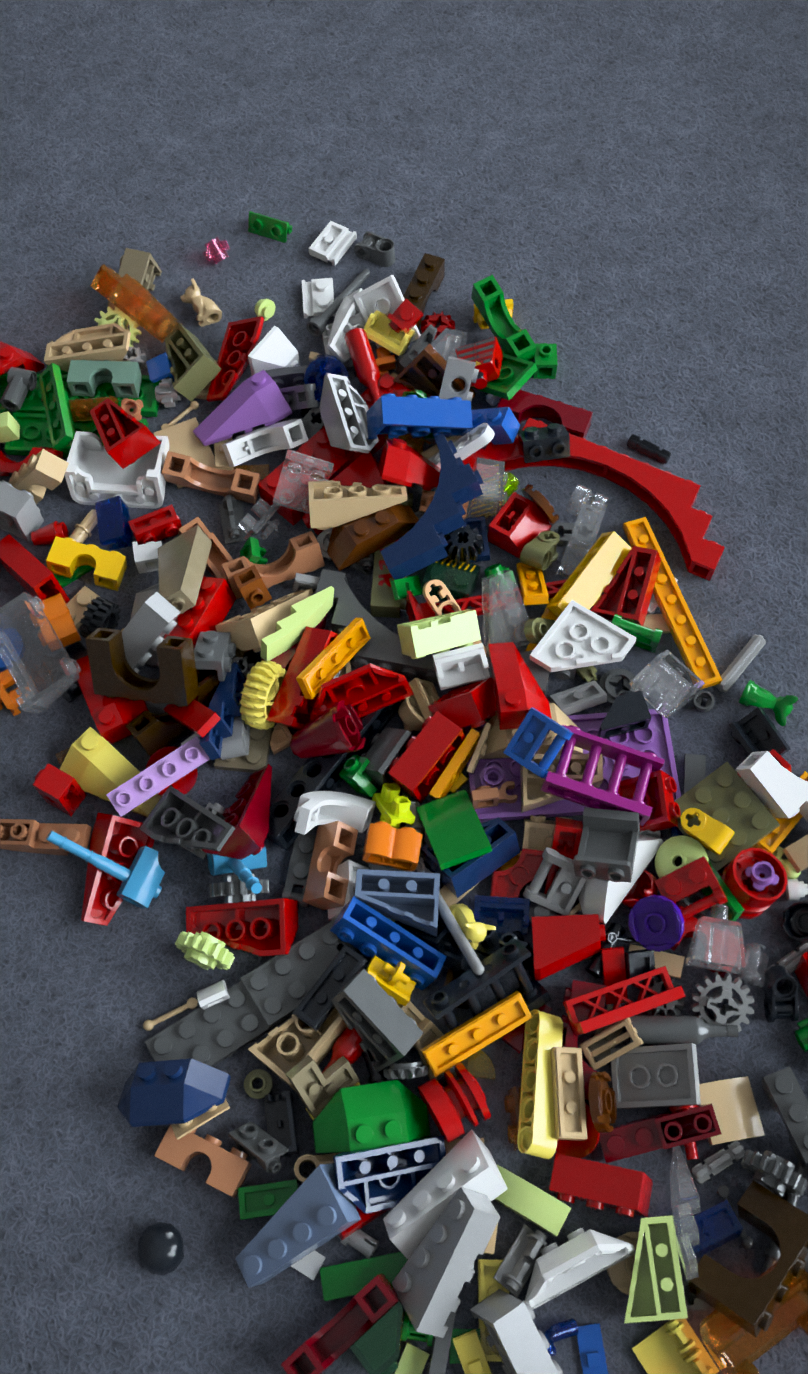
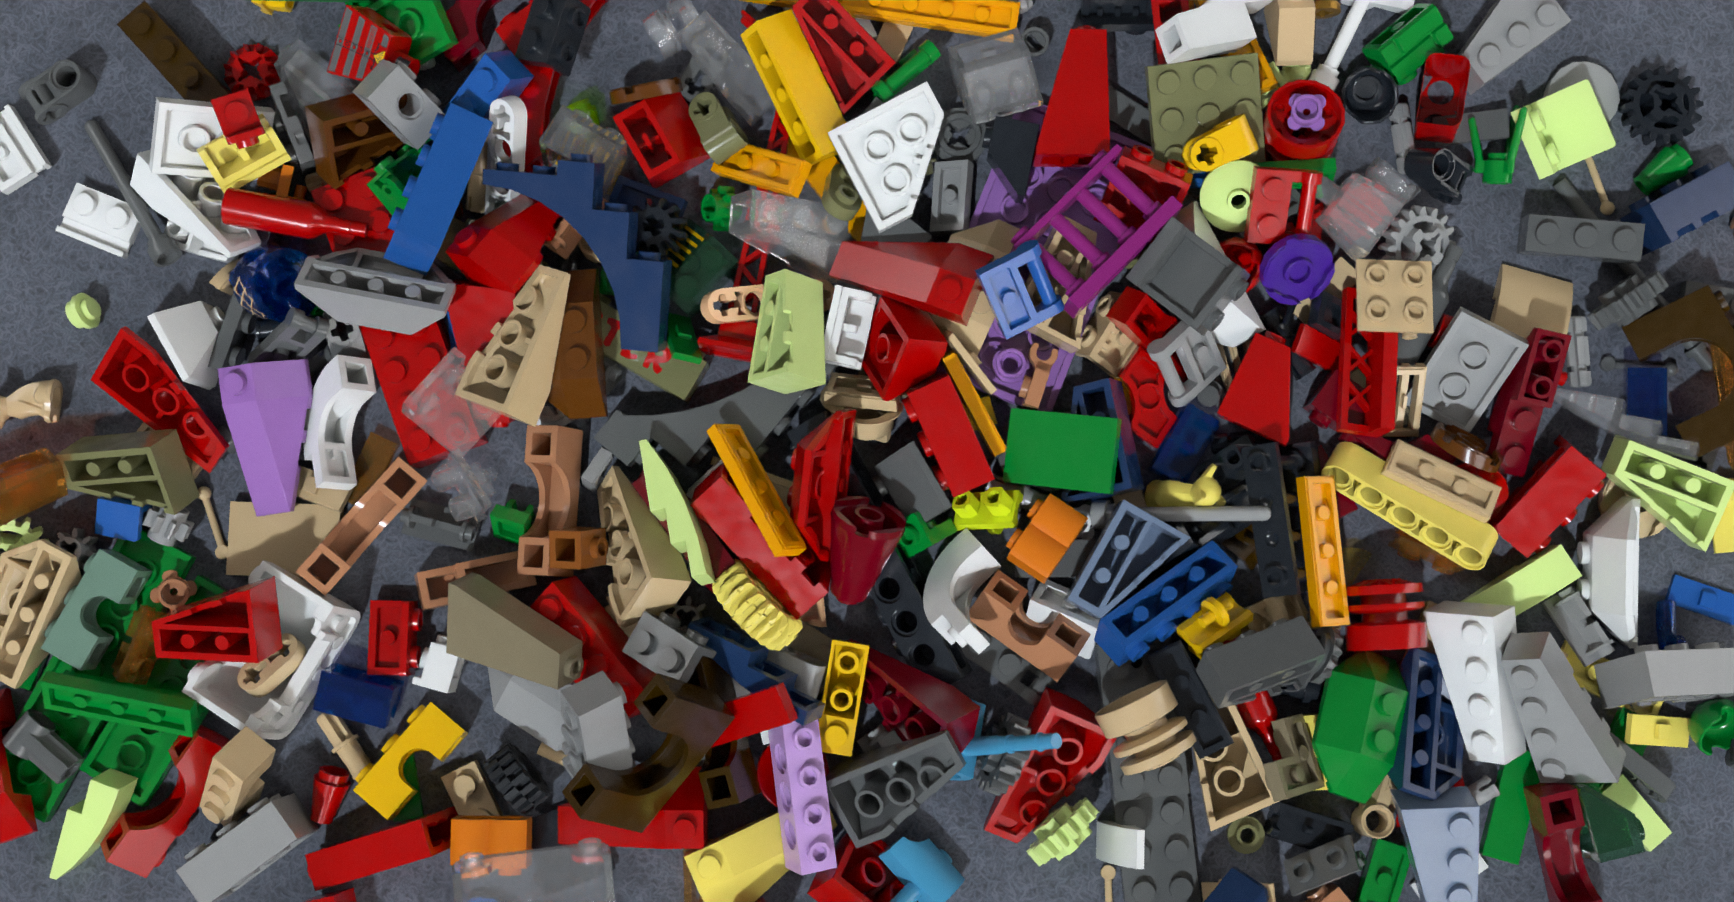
camera: 65 degrees left, 20 degrees up
(110, 471) = (272, 669): none -> tan beam
(229, 776) = (842, 696): none -> yellow slope
(296, 960) = (1148, 733): none -> tan wheel
(675, 995) = (1394, 297): none -> tan hinge
(681, 736) = (1078, 106): none -> red slope

